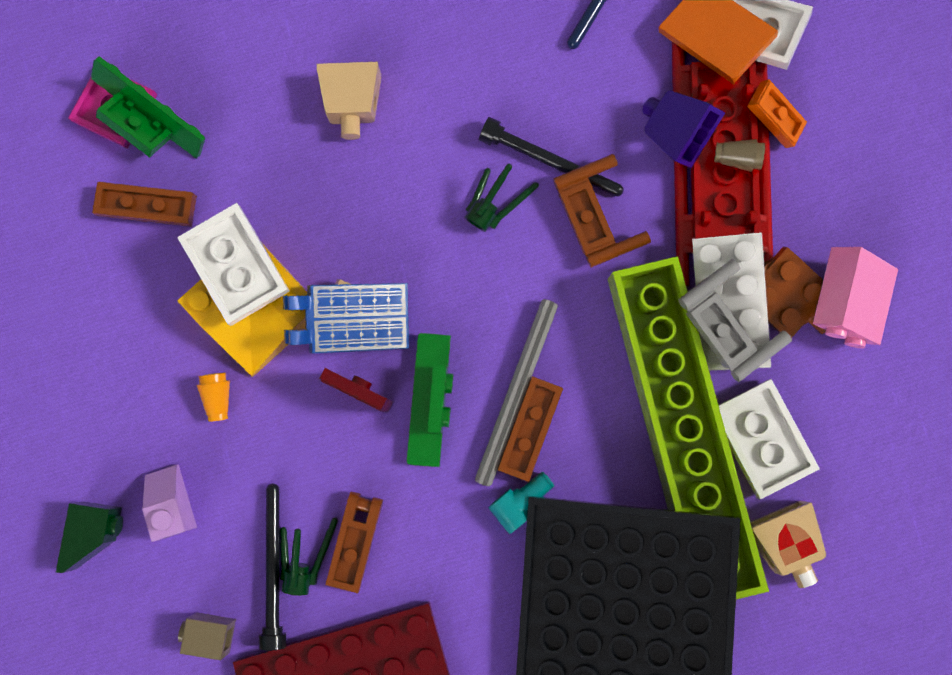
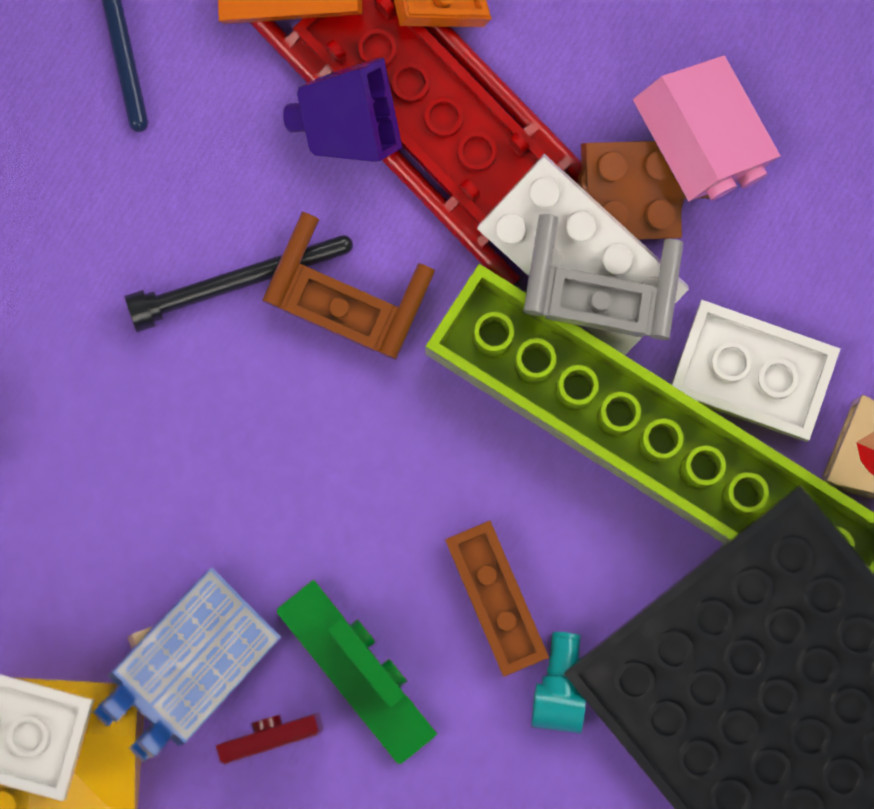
camera: 50 degrees left, 0 degrees up
(482, 212) = (220, 411): dark green plant -> none
(516, 393) = (444, 573): light grey axle -> none
(741, 154) = (442, 86): dark tan cone -> none

